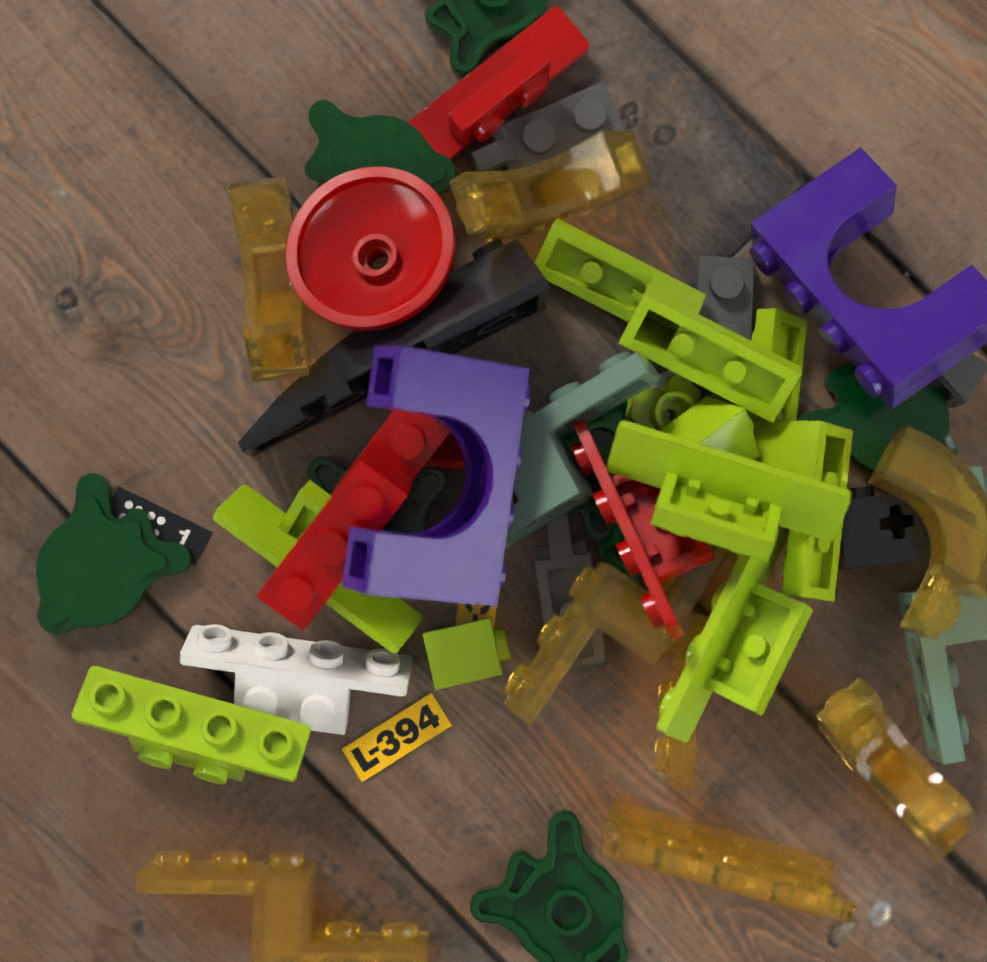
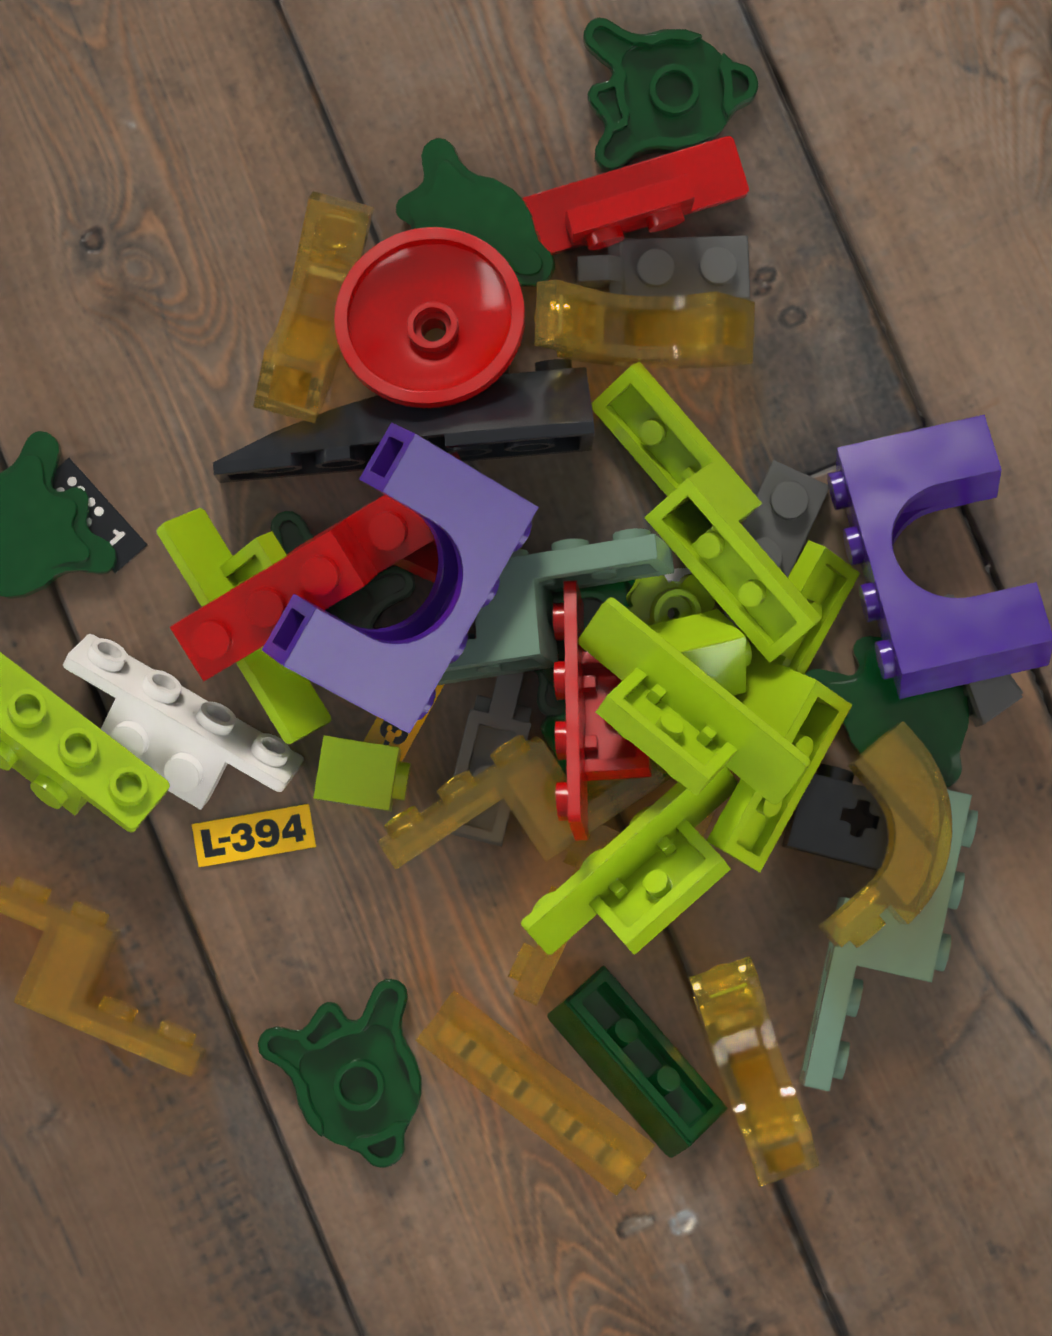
camera: 20 degrees right, 0 degrees up
(790, 797) = (637, 1062): none -> dark green slope

